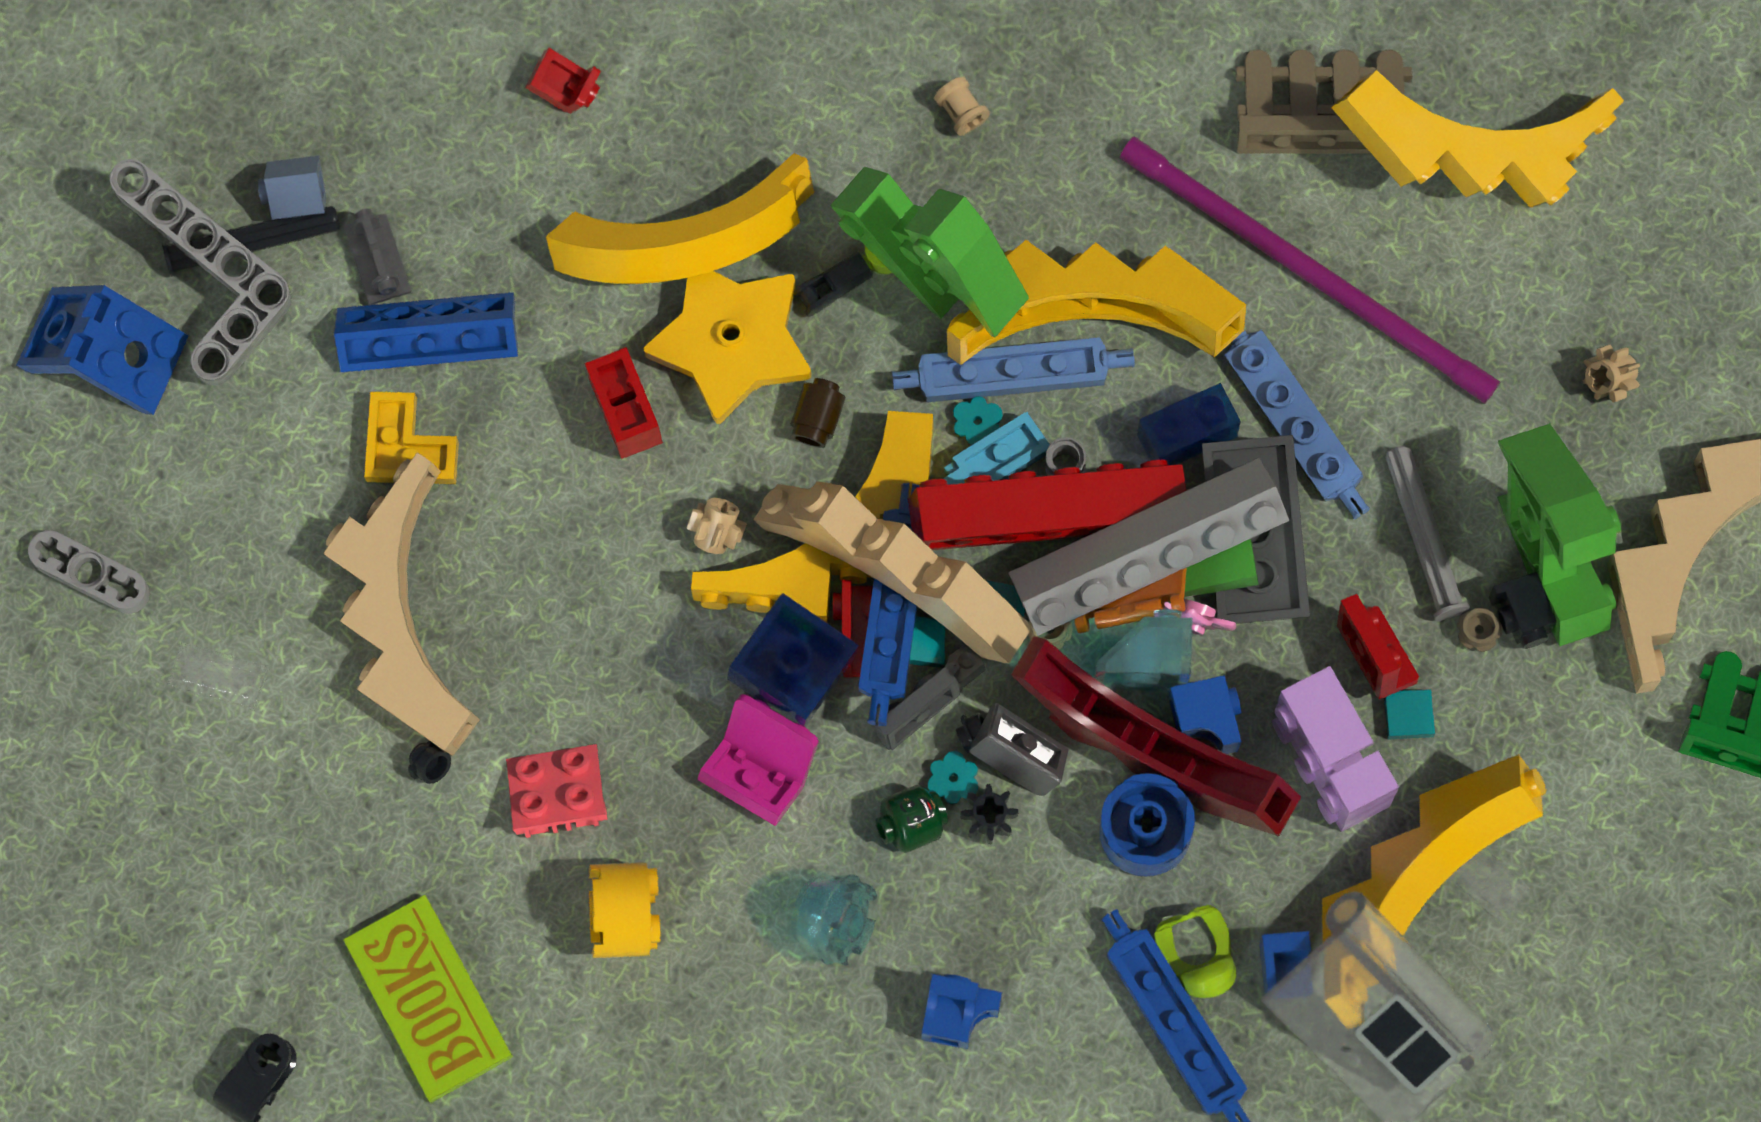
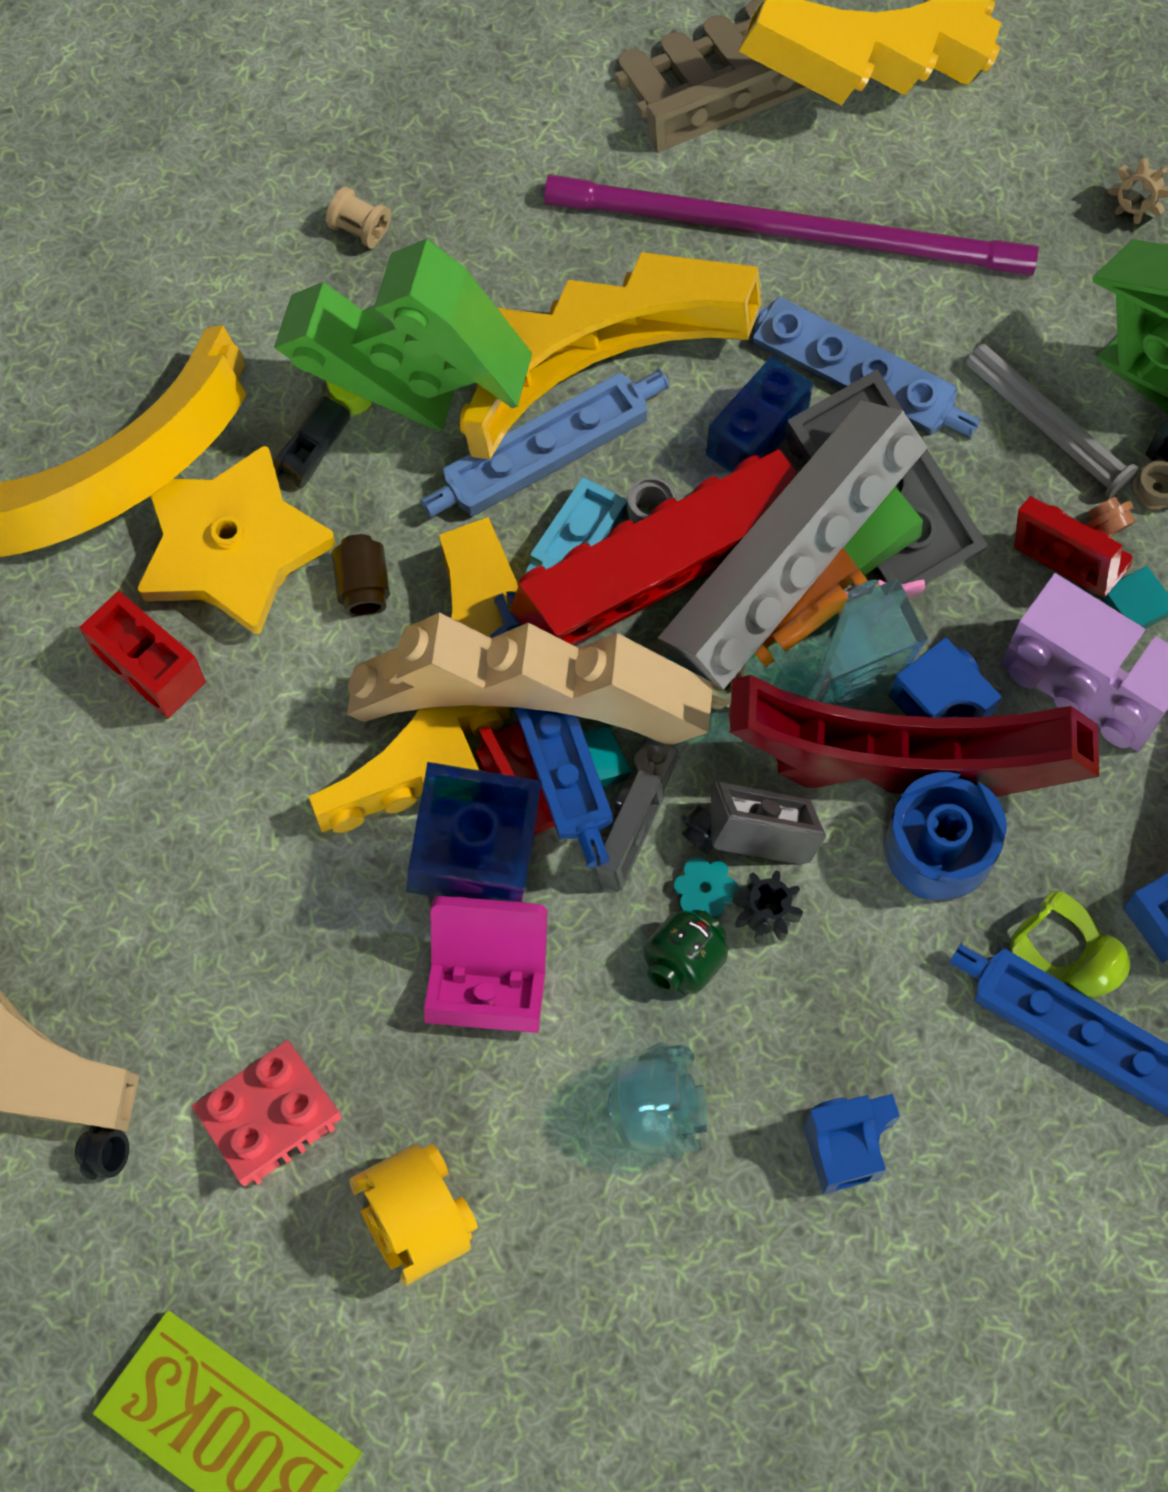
camera: 30 degrees left, 5 degrees down
(716, 525) = (309, 738): tan gear -> none
(967, 412) = (519, 510): teal plant -> none
(1422, 638) = (1111, 516): none -> nougat plate

